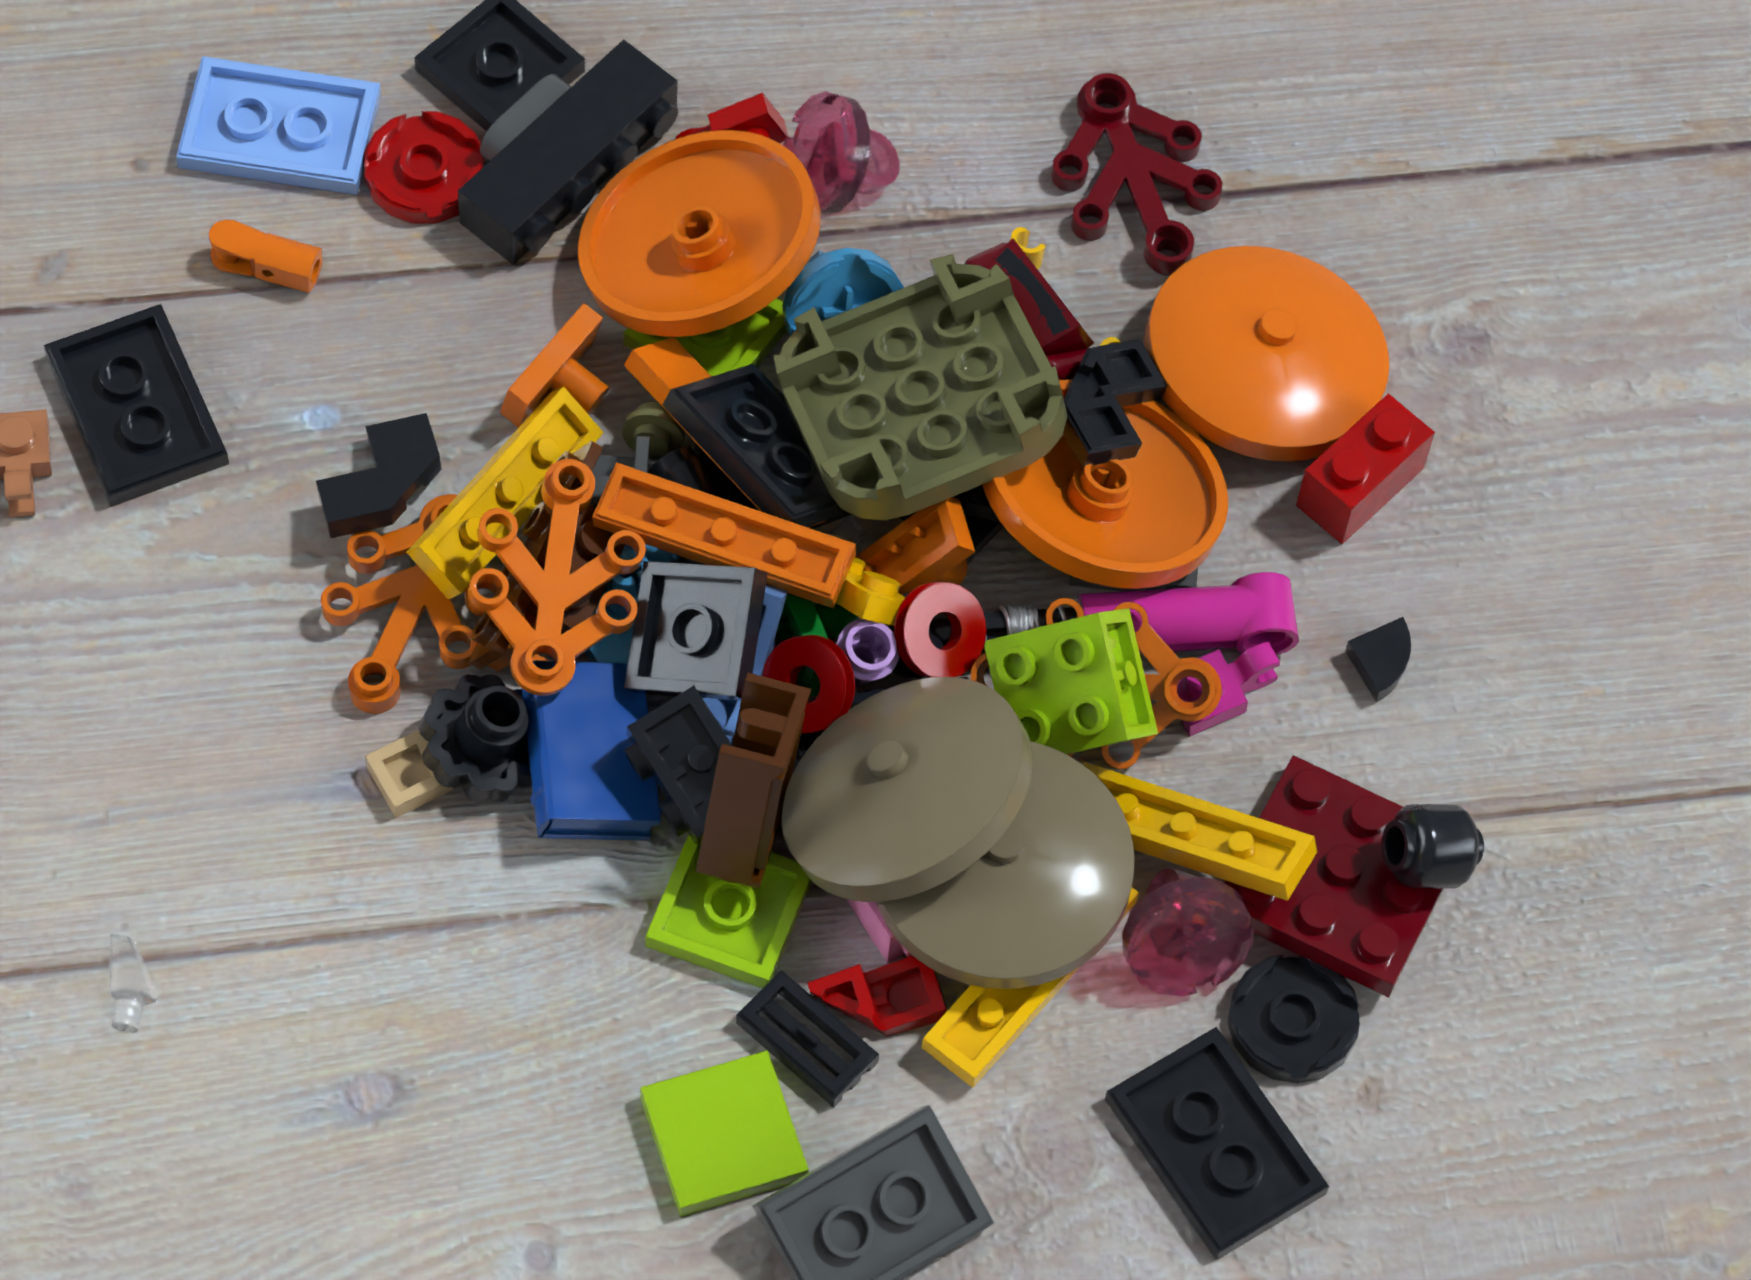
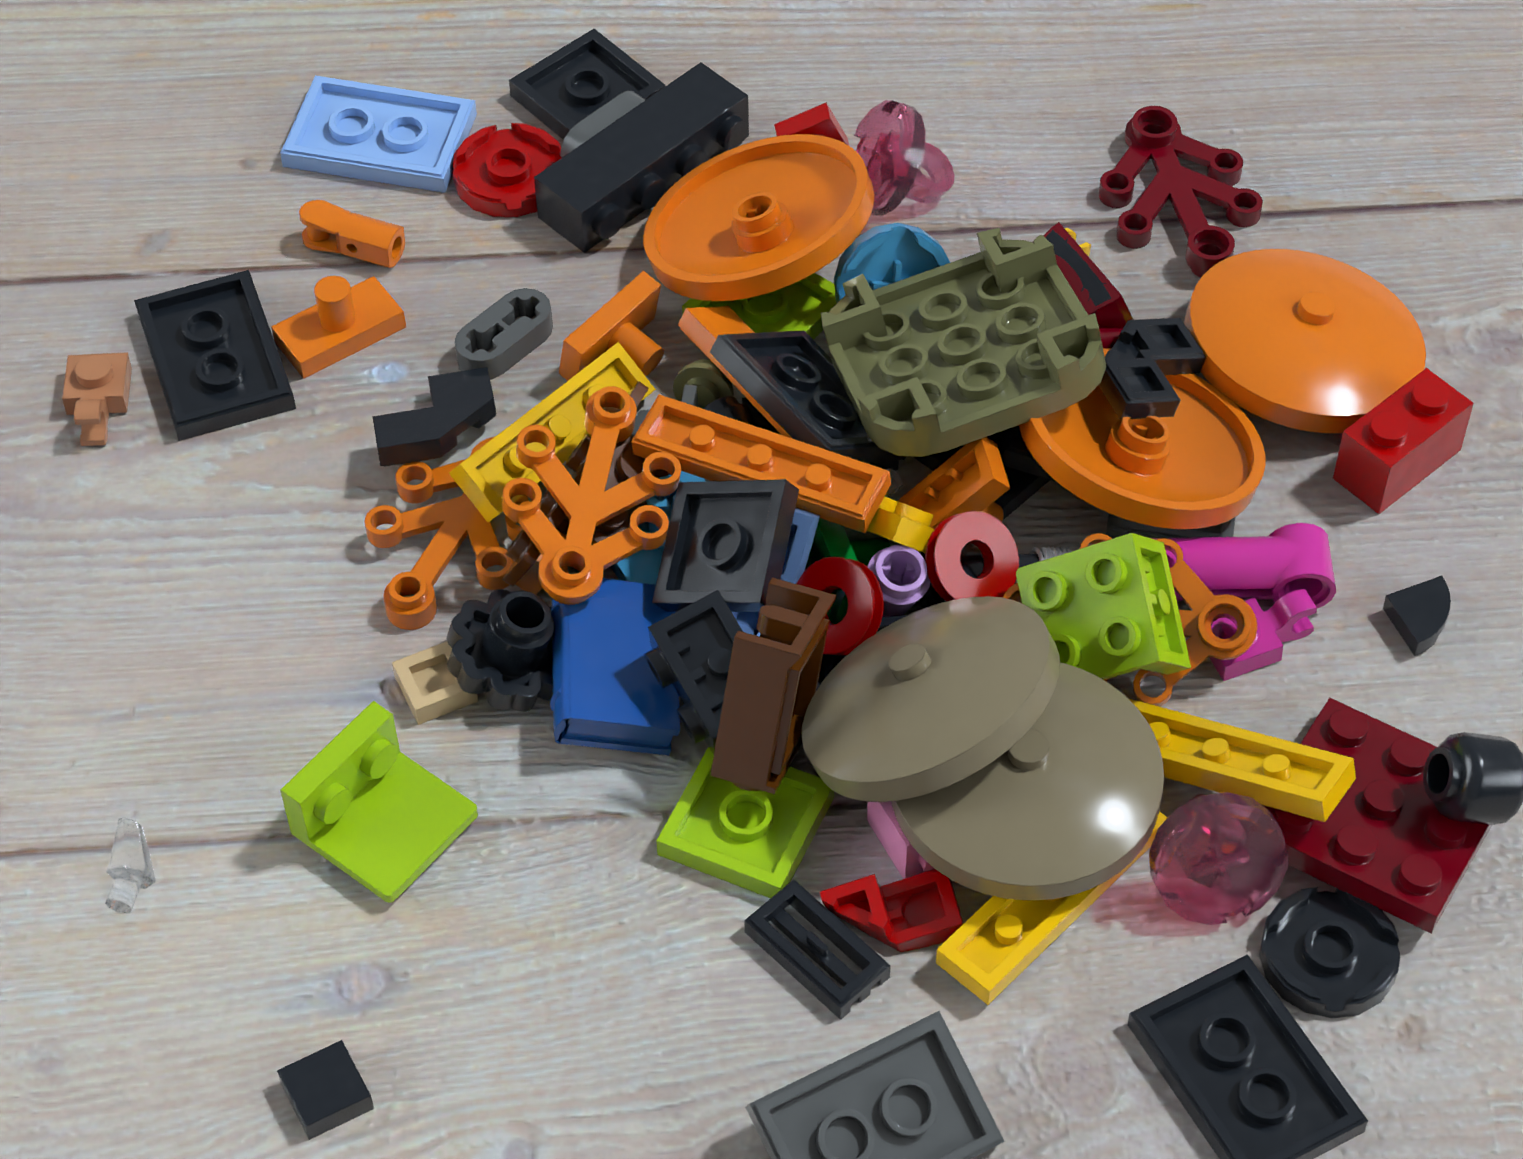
camera: 10 degrees right, 10 degrees down
(263, 366) = (338, 324): none -> orange tile
(350, 1203) = (325, 1089): none -> black tile
(369, 916) = (374, 807): none -> lime bracket
(432, 364) = (500, 331): none -> dark grey beam
(723, 1133) = (721, 1037): lime tile -> none

